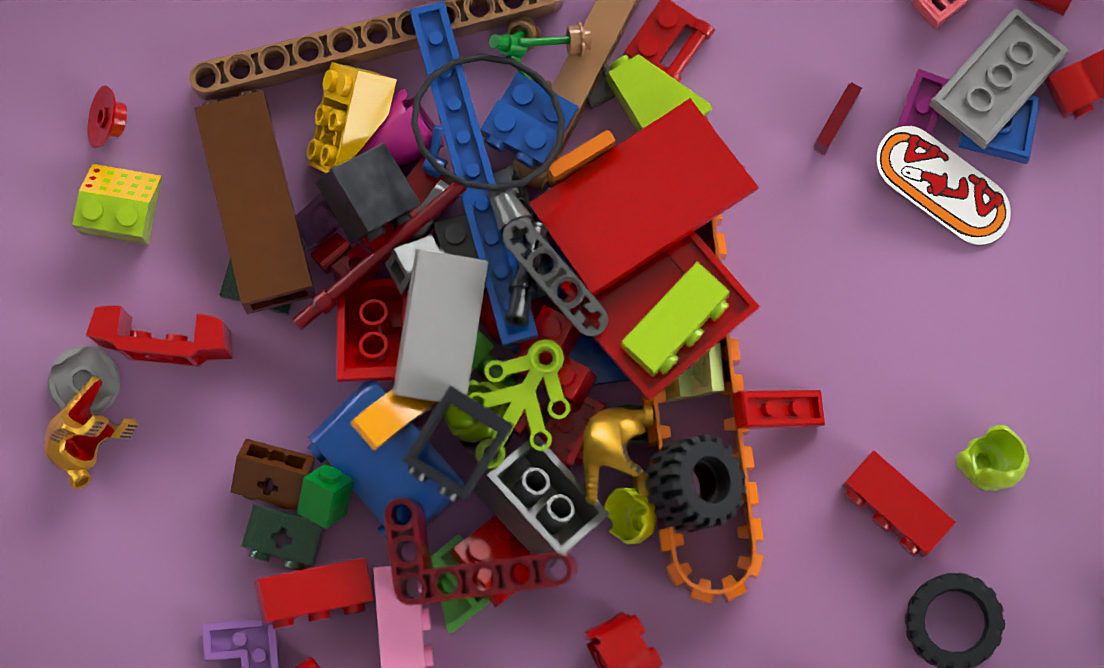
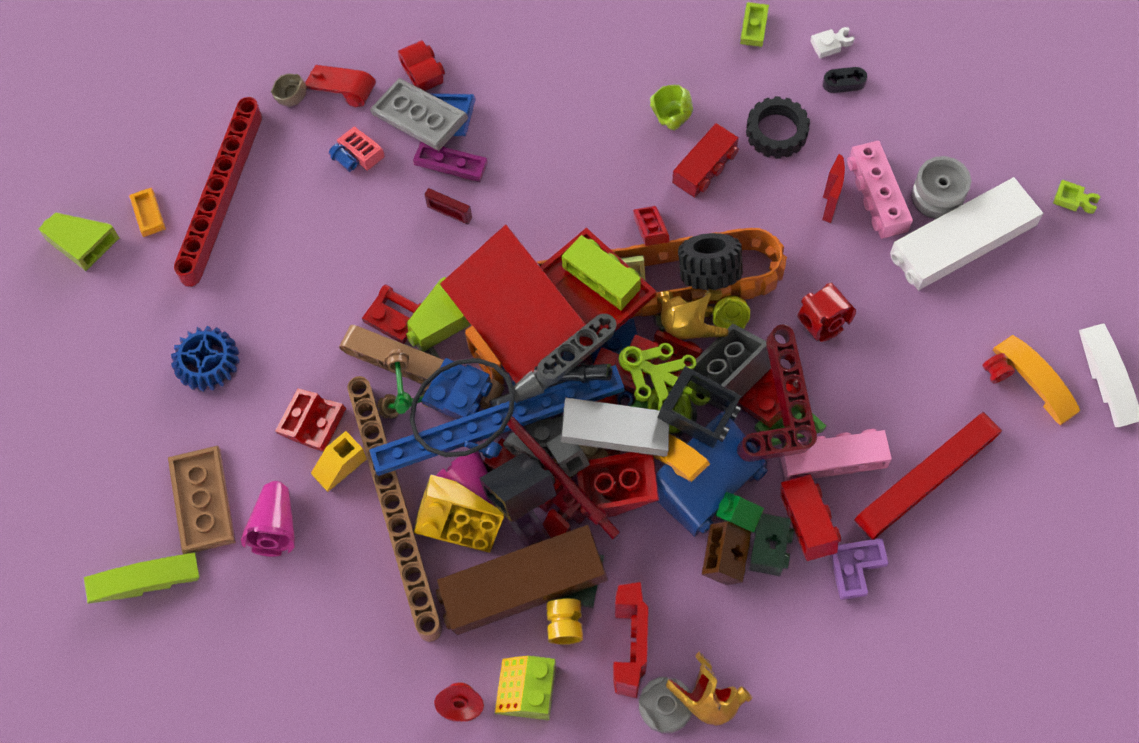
camera: 90 degrees left, 15 degrees down
(197, 255) = (564, 621): none -> yellow wheel
(943, 185) = (491, 144): sticker -> none

